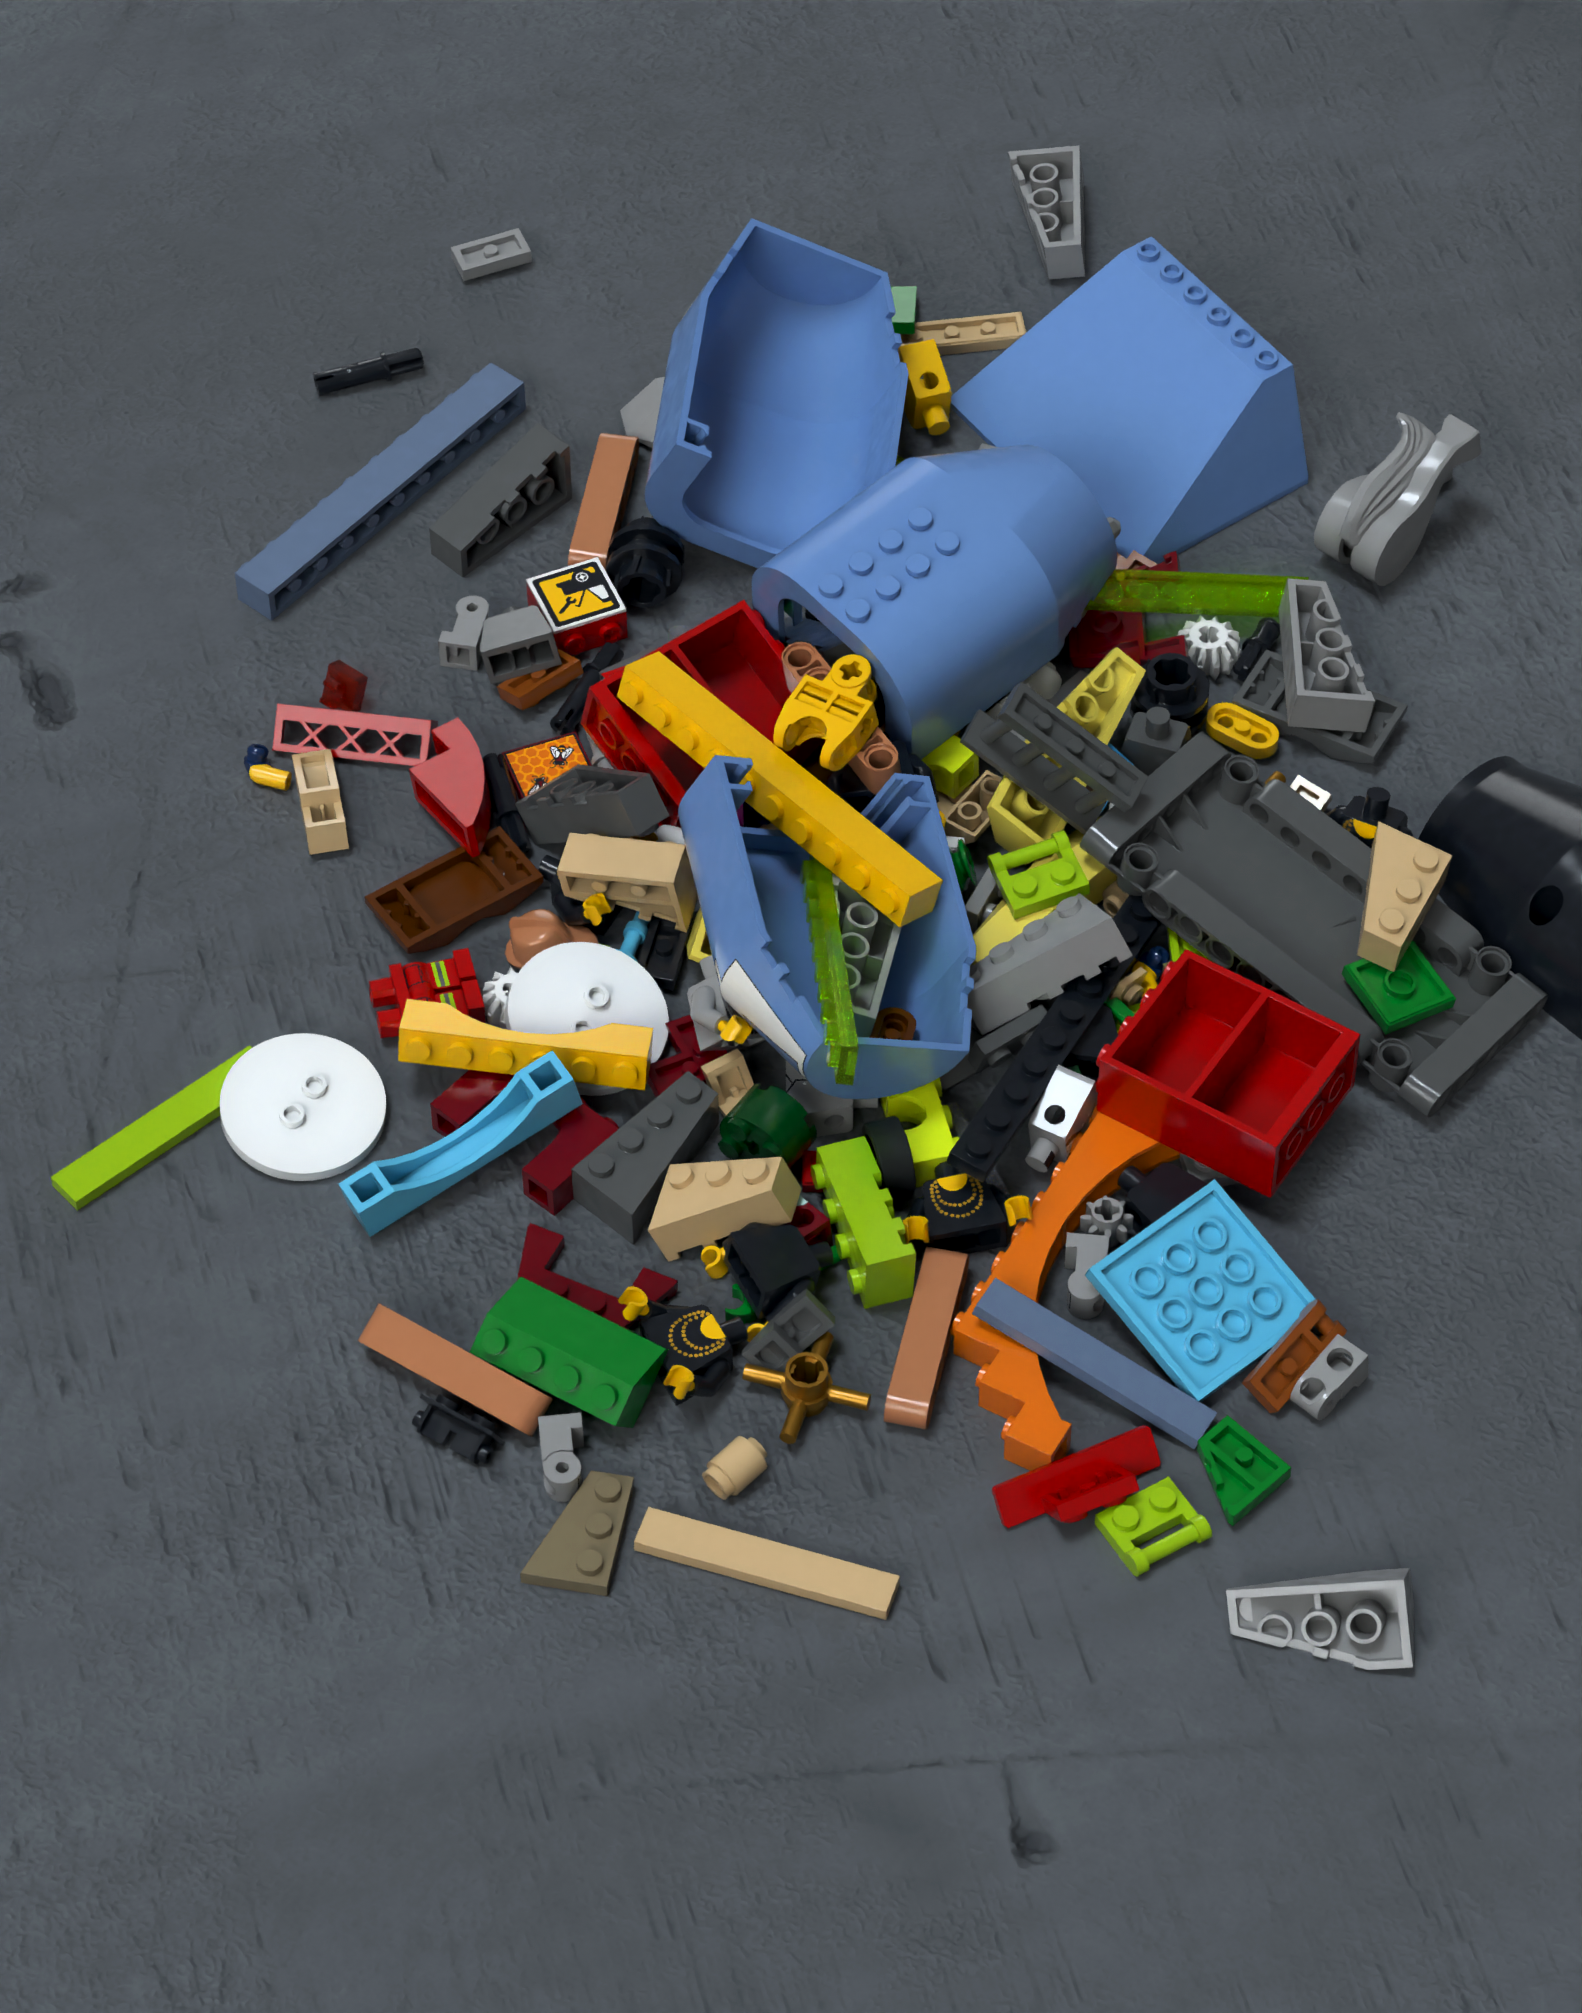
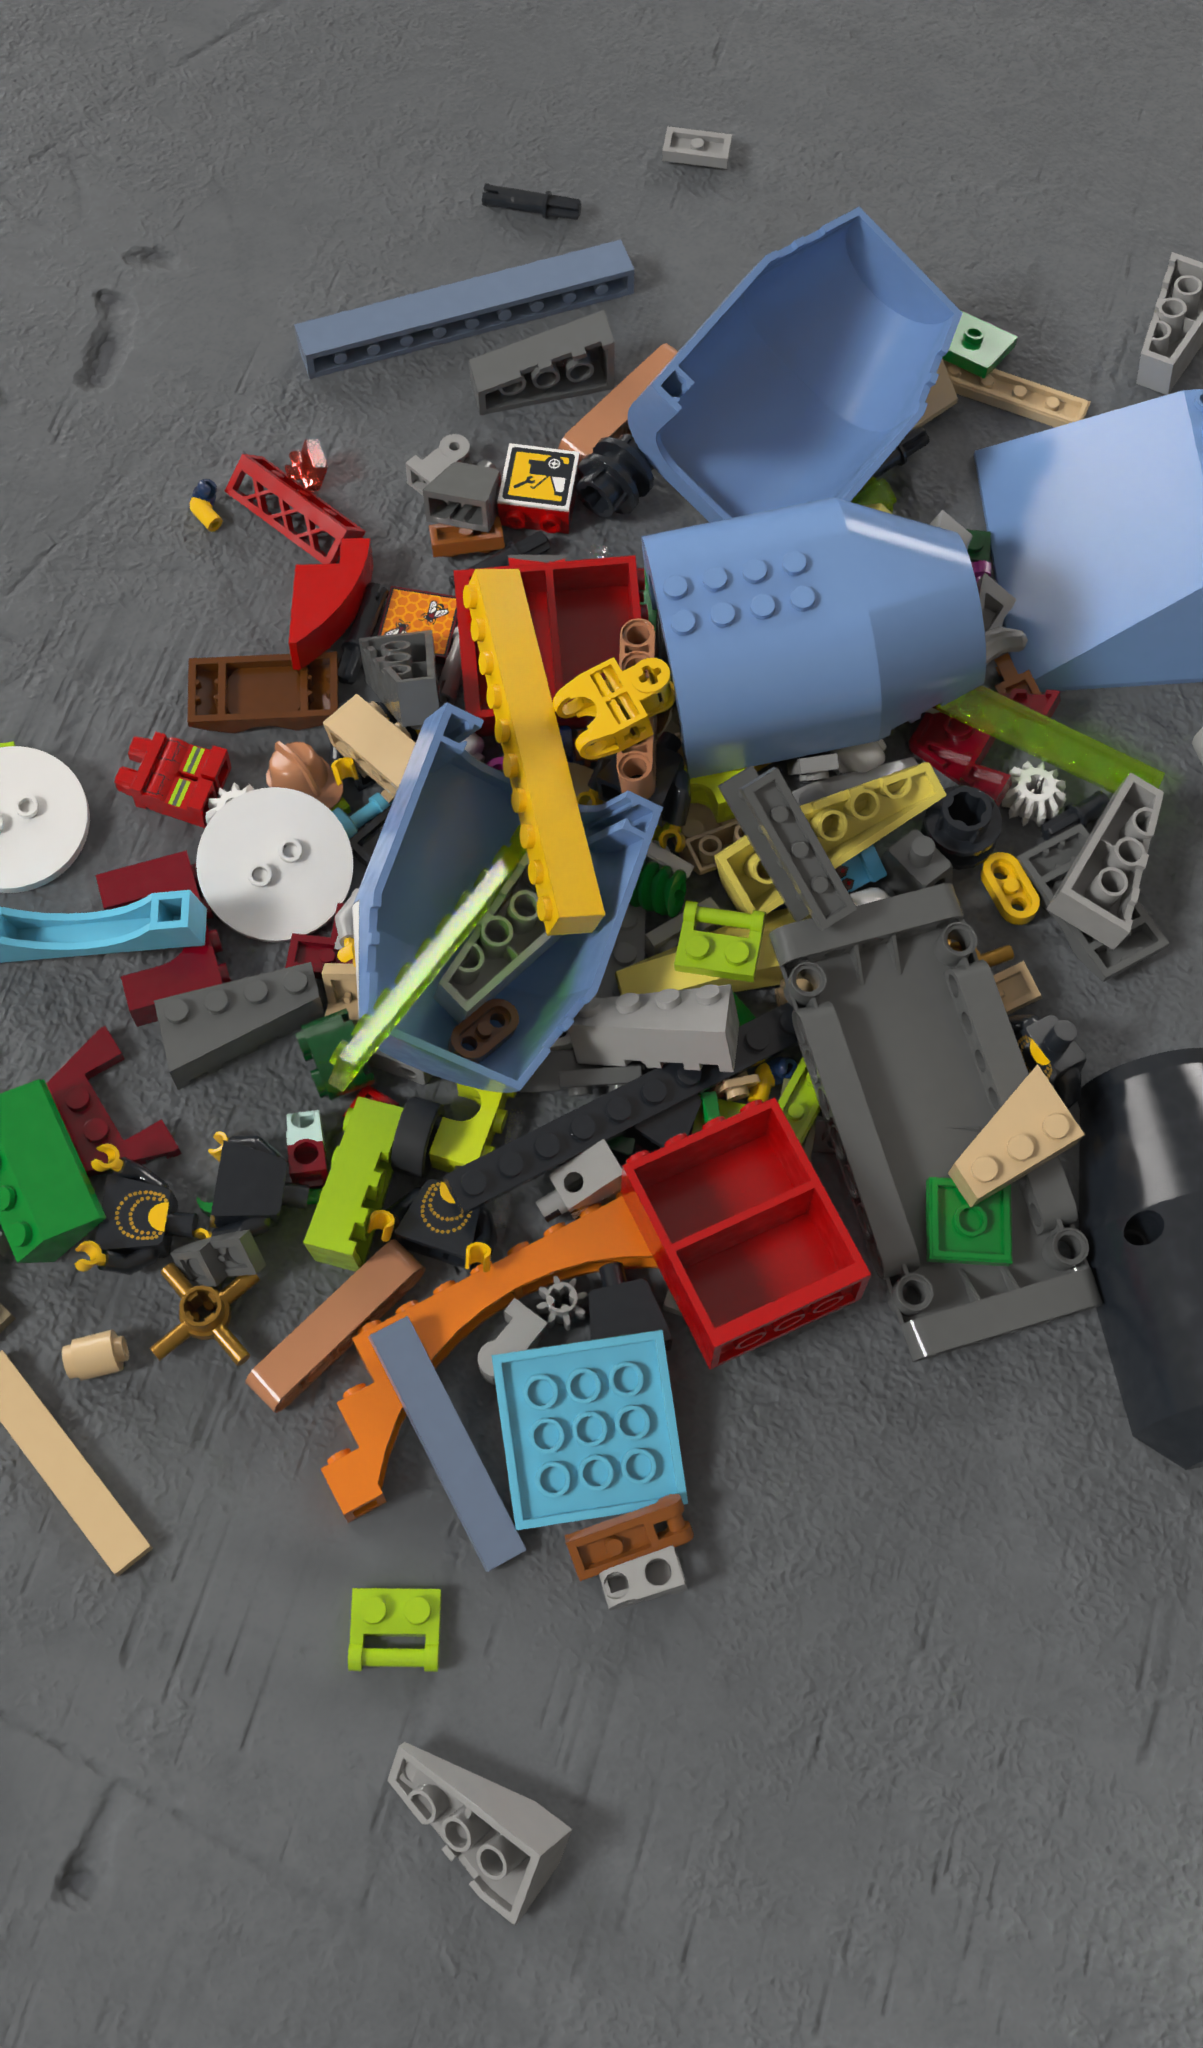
camera: 30 degrees right, 15 degrees up
(320, 801) = (222, 555): tan slope -> none
(447, 1038) = (255, 912): yellow arch -> none
(718, 1198) = (248, 1099): tan wedge -> none
(927, 398) = (955, 431): yellow torso -> none
(1079, 1481) = (361, 1551): red bracket -> none
(1239, 1468) = (506, 1620): green wing -> none

